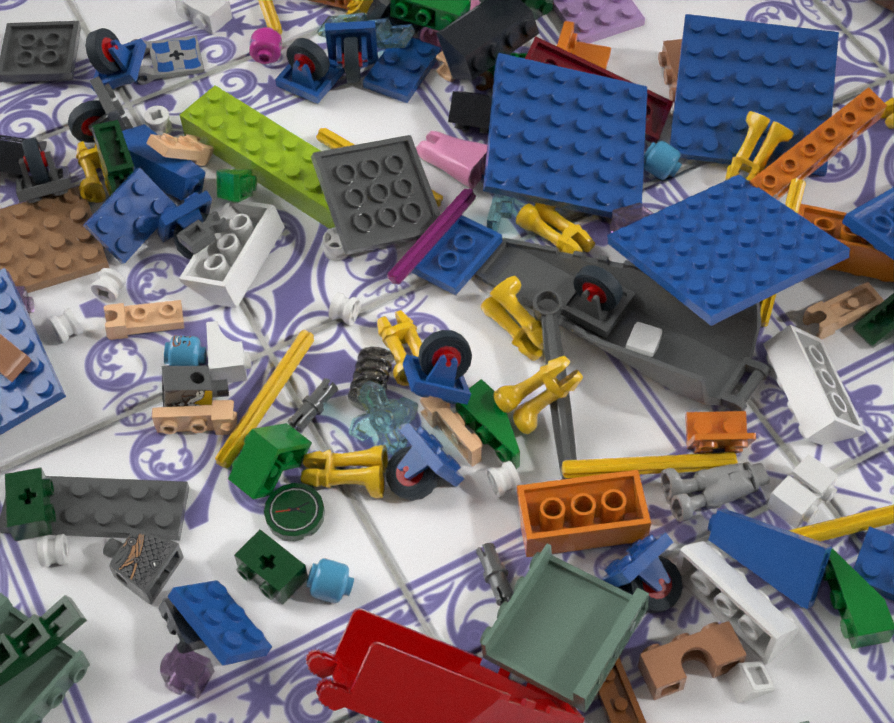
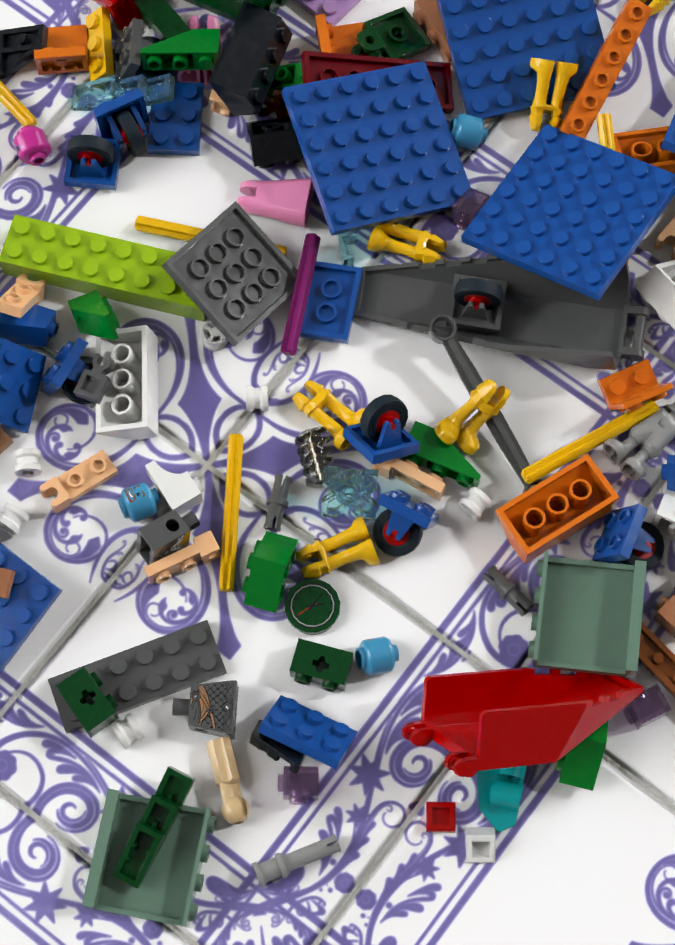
camera: 25 degrees left, 15 degrees up
(118, 637) = (227, 778): none -> tan piece
(503, 298) = (435, 359): yellow piece -> none
(619, 60) = (378, 37): none -> dark green plate
(644, 339) = (534, 324): white slope -> none

